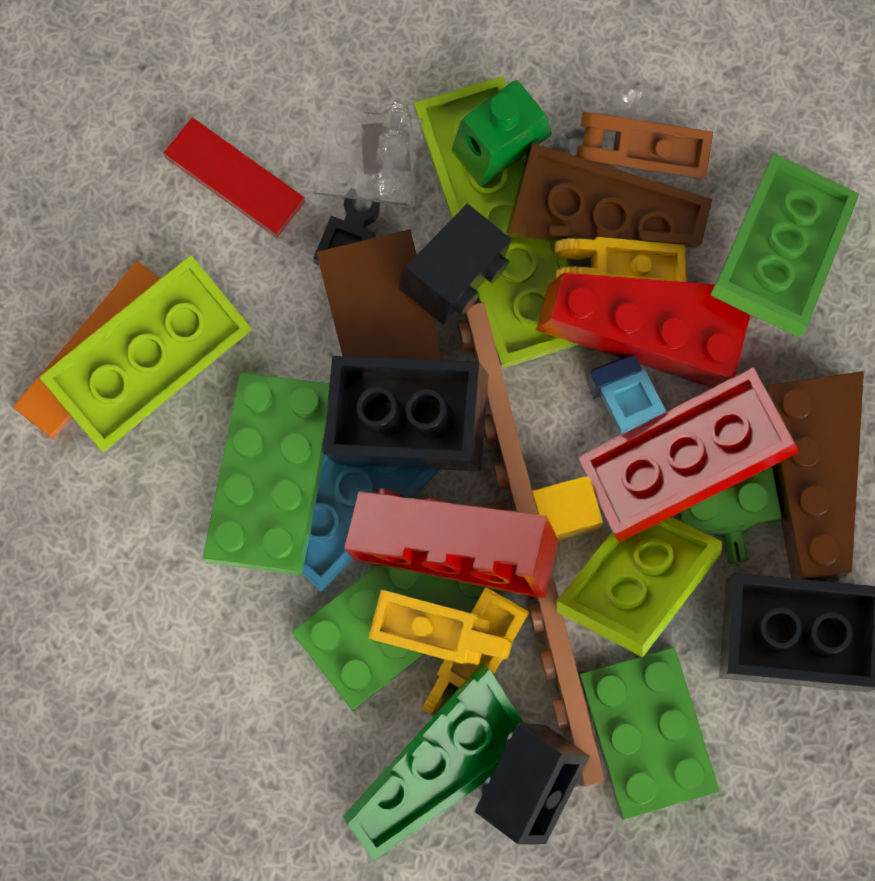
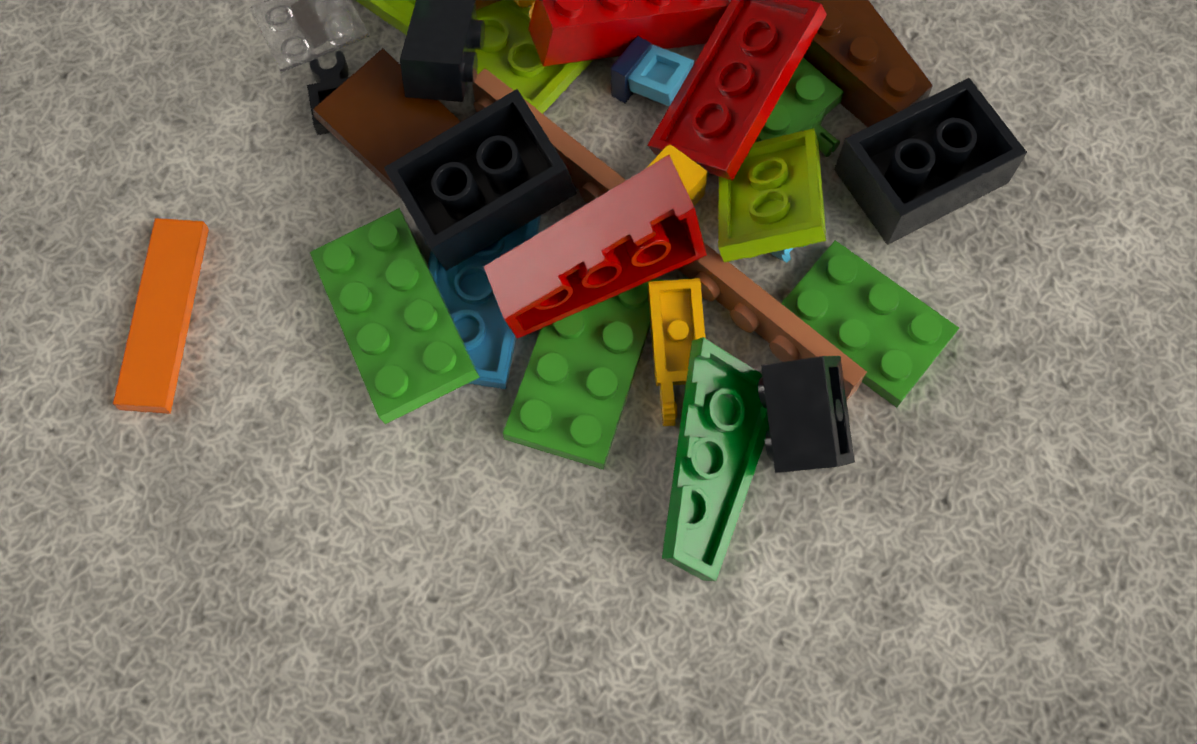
camera: 35 degrees left, 10 degrees down
(145, 353) = (210, 284): lime plate -> none
(234, 177) = (201, 110): red tile -> none
(435, 630) = (632, 339): yellow hinge -> none

